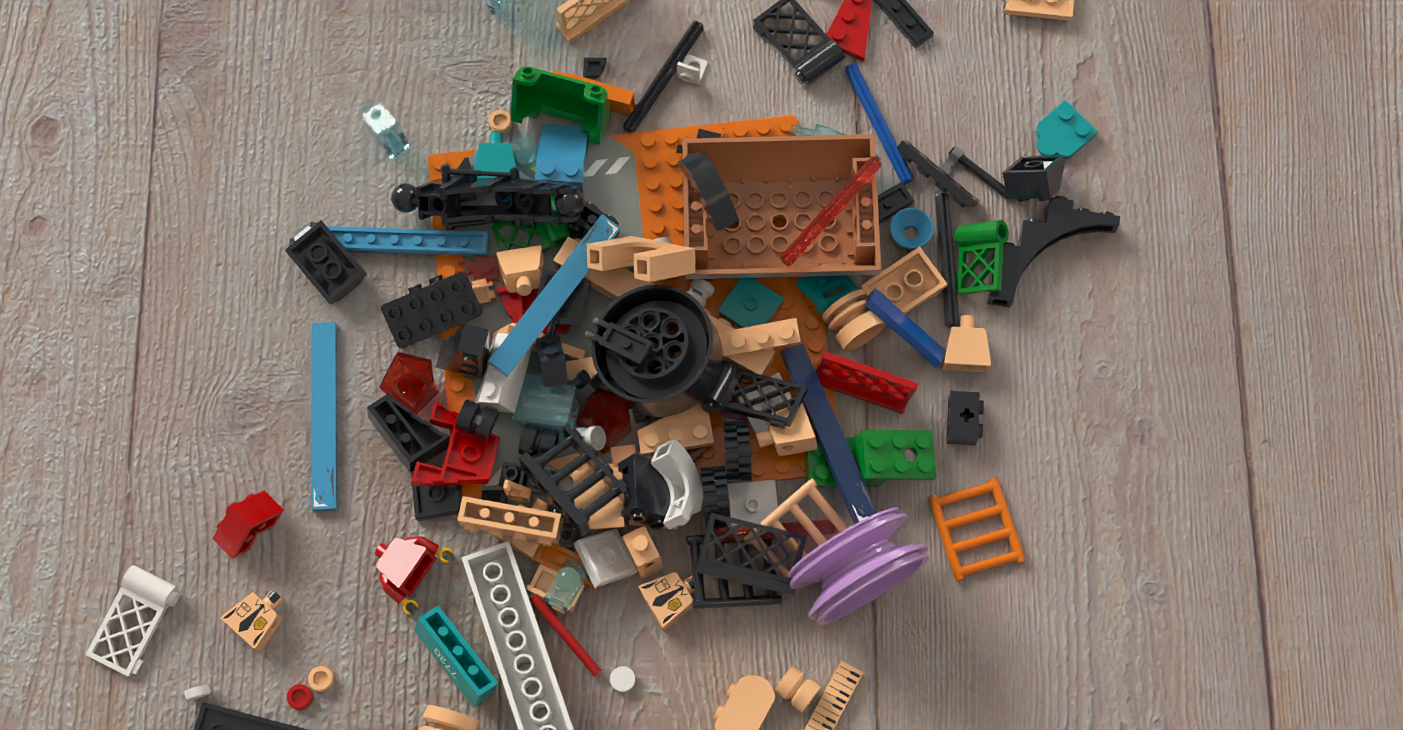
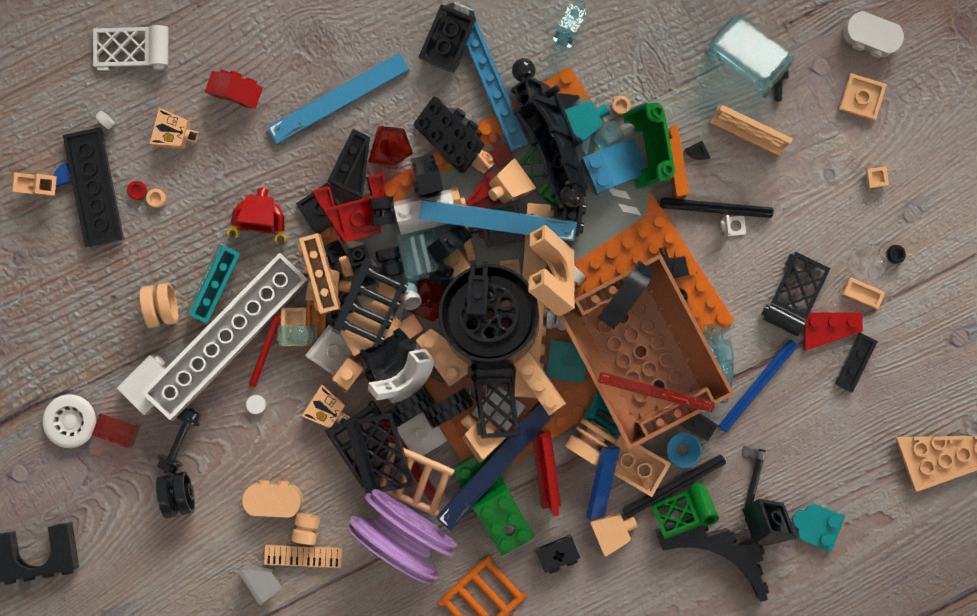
camera: 60 degrees right, 15 degrees up
(944, 181) = (736, 449): black hinge -> none

